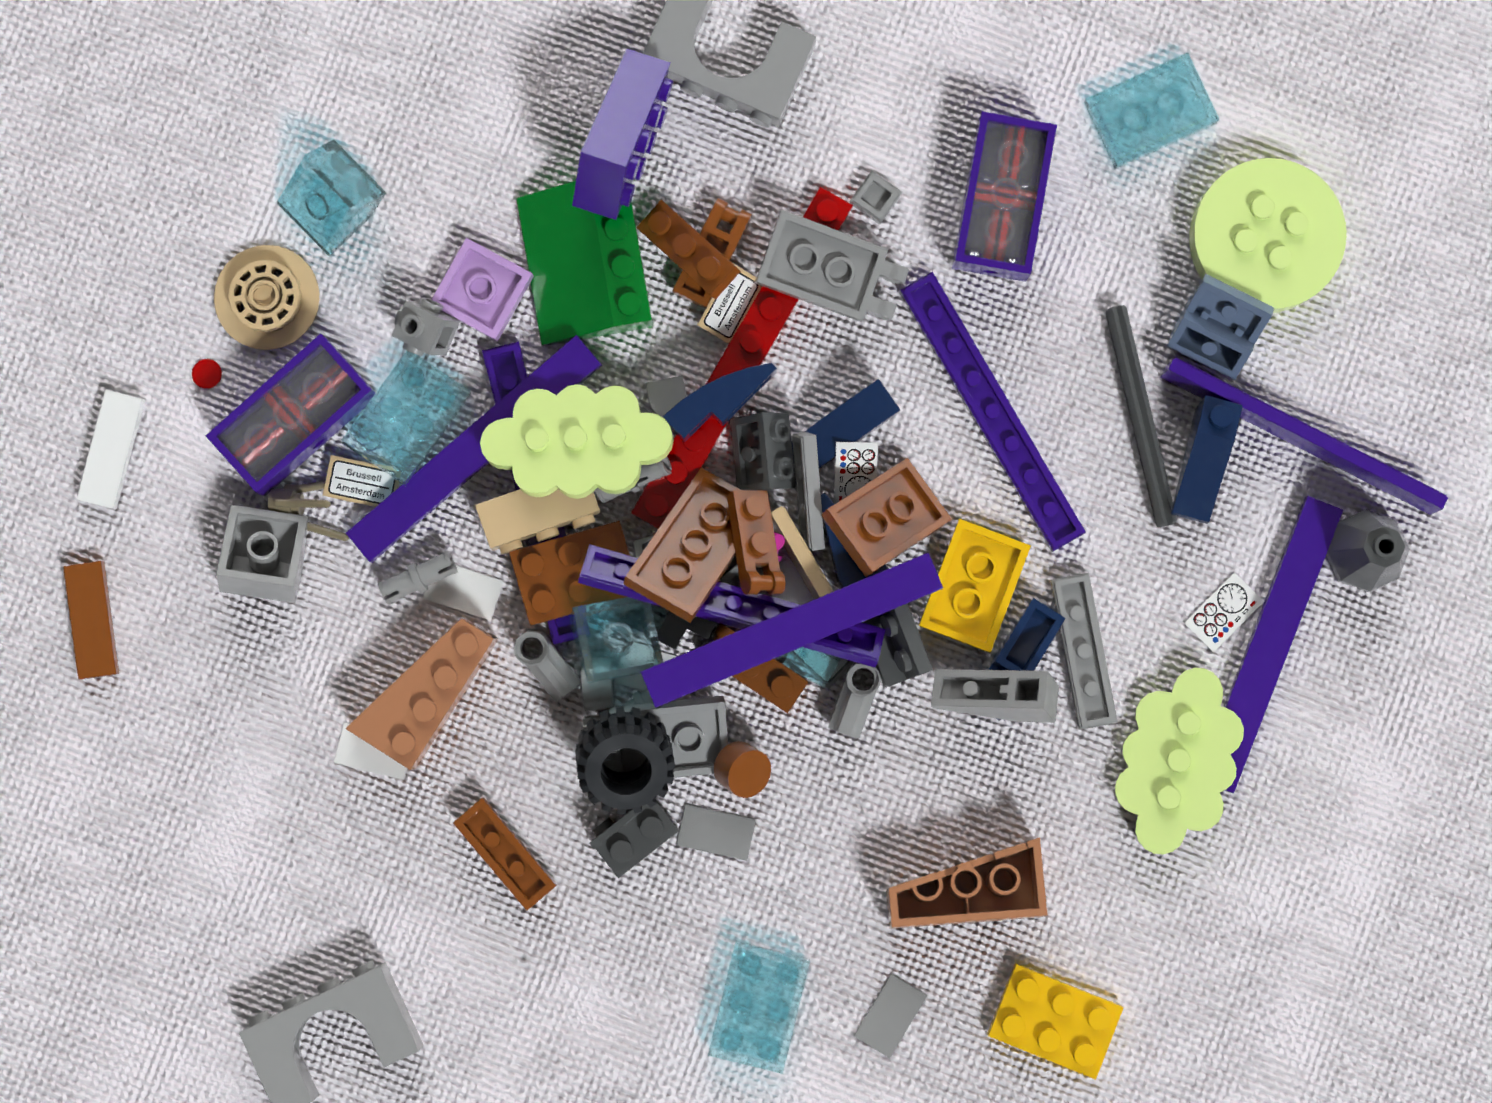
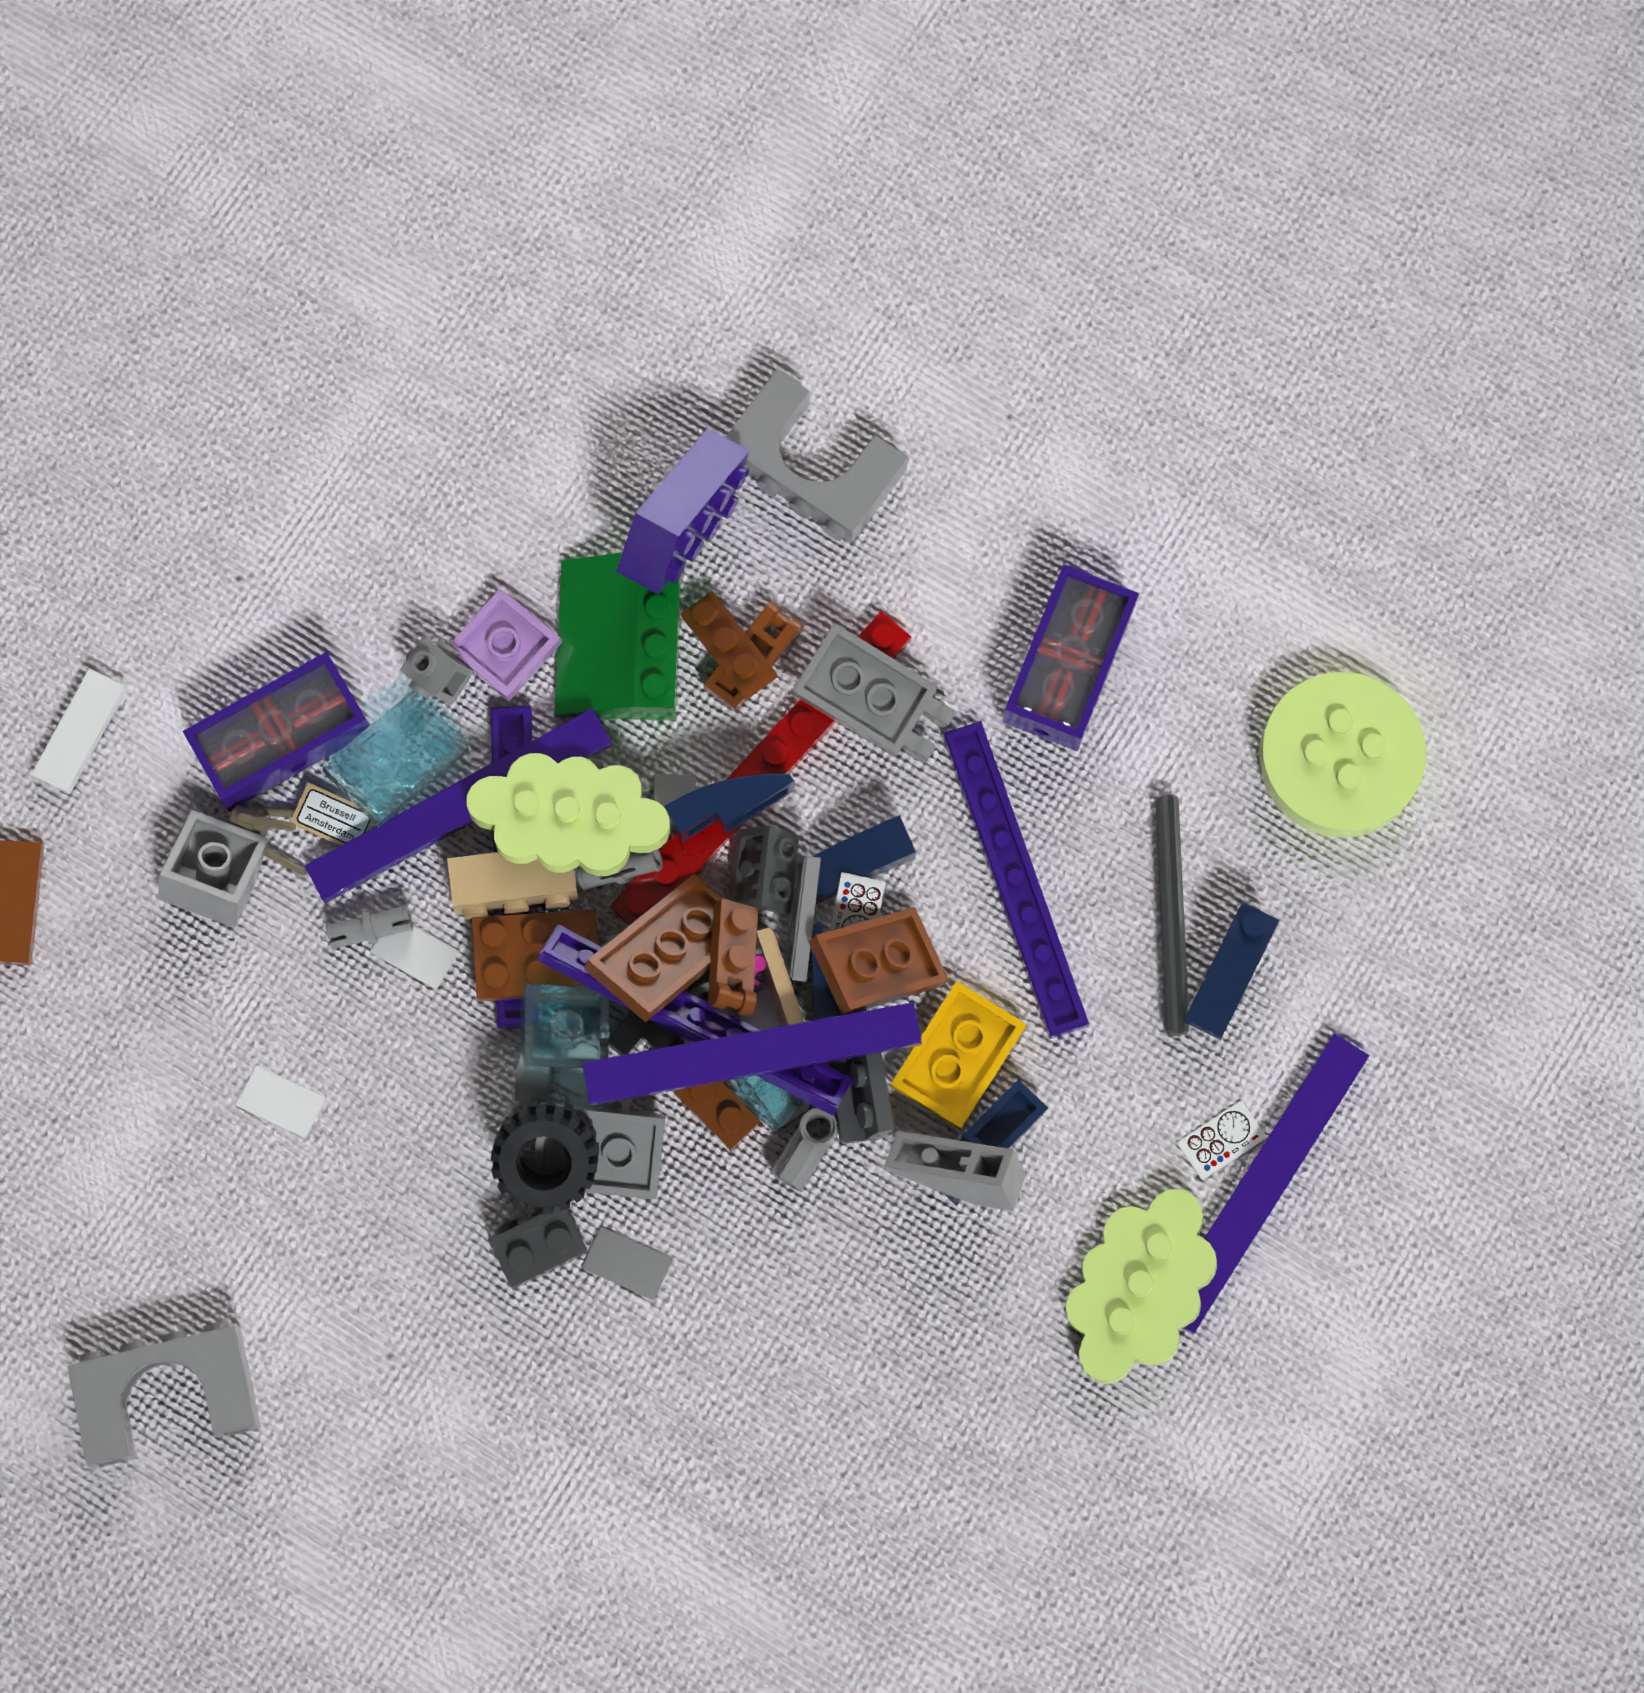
camera: 10 degrees right, 10 degrees down
(206, 373) = (198, 675): red sticker -> none
(266, 297) = (277, 608): tan wheel -> none
(330, 196) = (369, 519): clear light blue slope -> none
(421, 700) = (349, 1050): nougat wedge -> none
(505, 853) = (395, 1237): dark orange plate -> none
(549, 668) = (487, 1047): light grey piece -> none
(729, 309) = (760, 713): sticker -> none
(742, 769) = (669, 1197): dark orange piece -> none
(759, 1007) = (632, 1458): clear light blue plate -> none
(875, 197) = (937, 634): light grey tile -> none
(890, 1015) = (773, 1501): light grey sticker -> none
(980, 890) = (889, 1379): nougat wedge -> none
(1055, 1021) = (951, 1542): yellow plate -> none
(1084, 651) = (1062, 1150): light grey tile -> none
(1151, 110) = (1245, 603): clear light blue plate -> none
(1220, 326) = (1272, 836): sand blue brick -> none
(1308, 438) = (1346, 972): dark purple tile -> none
(1367, 551) = (1387, 1105): dark grey cone -> none

